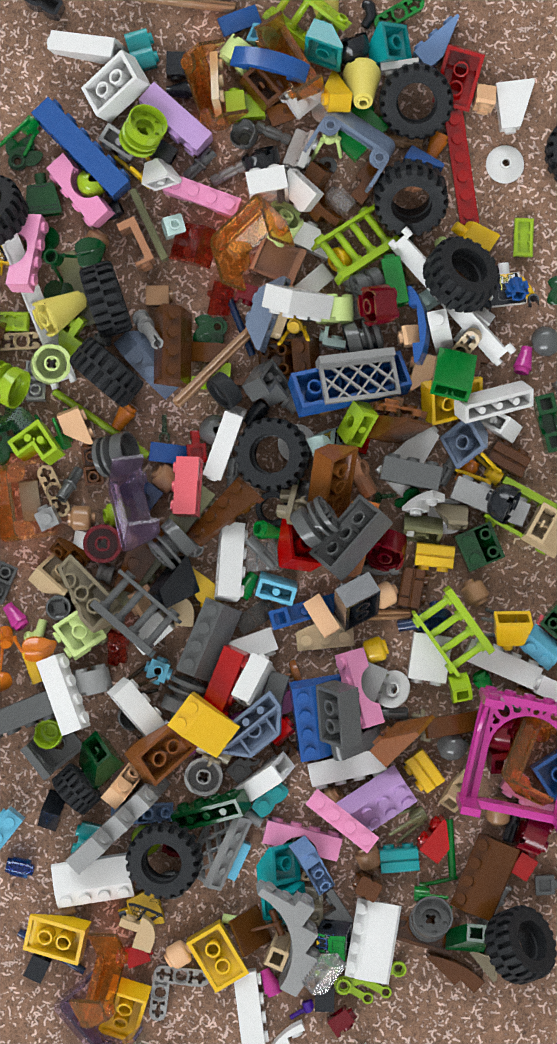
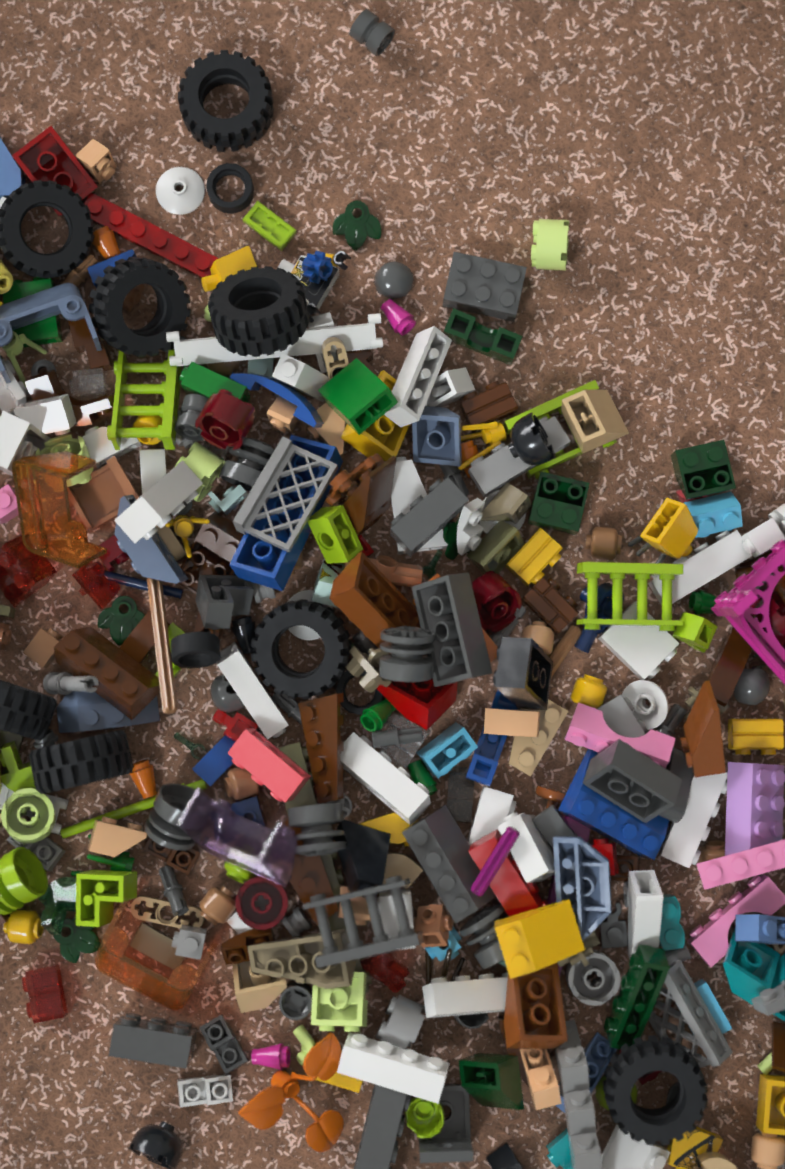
camera: 55 degrees left, 5 degrees down
(76, 789) = (507, 1130): black tyre -> none
(165, 657) = (434, 924): none -> nougat brick
(233, 665) = (495, 861): none -> magenta axle
(512, 102) = (123, 136): white slope -> none
(543, 195) = (225, 170): none -> black tyre

